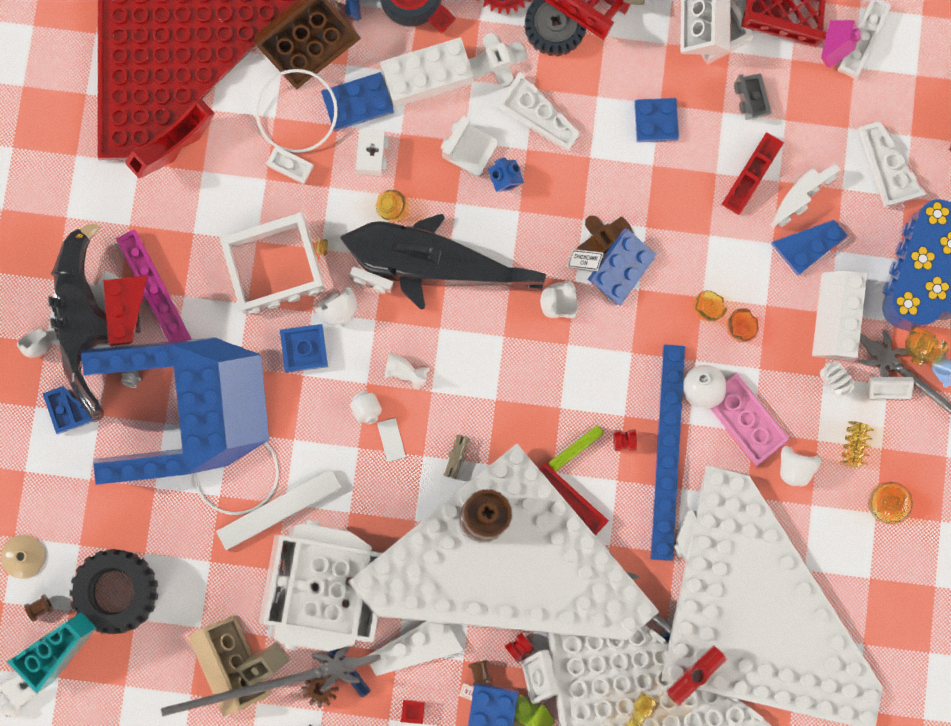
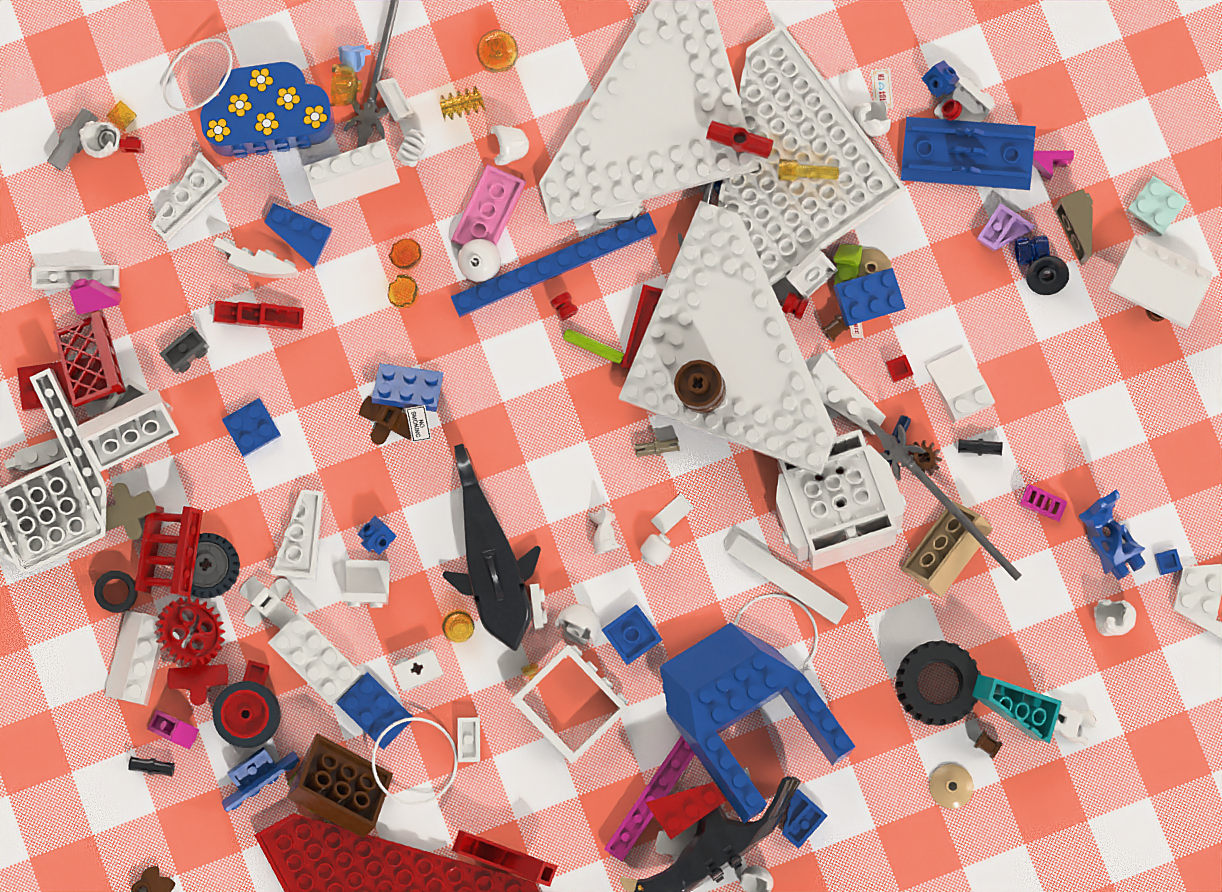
camera: 110 degrees left, 0 degrees up
(263, 664) = (930, 516): dark tan brick -> none
(559, 300) = (468, 427): white hair -> none

